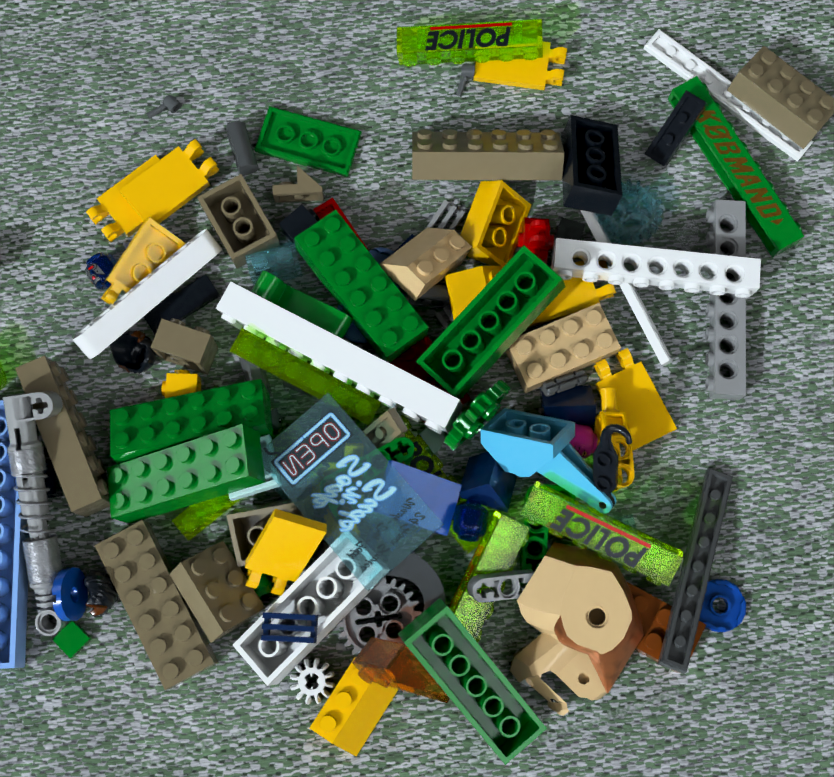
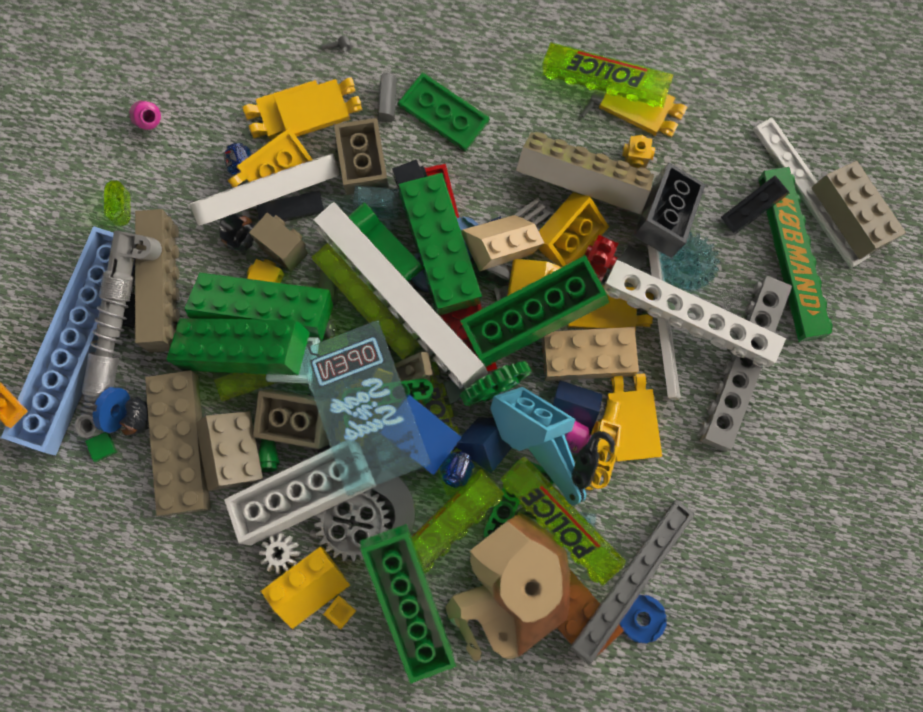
camera: 20 degrees right, 0 degrees up
(267, 626) = (257, 495): dark blue tile -> none
(283, 549) = (293, 435): yellow tile -> none
(304, 190) = (423, 150): dark tan slope -> none
(396, 667) = (347, 567): clear orange slope -> none
(400, 719) = (339, 612): none -> yellow tile
(495, 580) = (458, 526): light grey beam -> none
(533, 113) = (638, 151): none -> yellow brick
(564, 382) = (581, 383): dark grey axle -> none

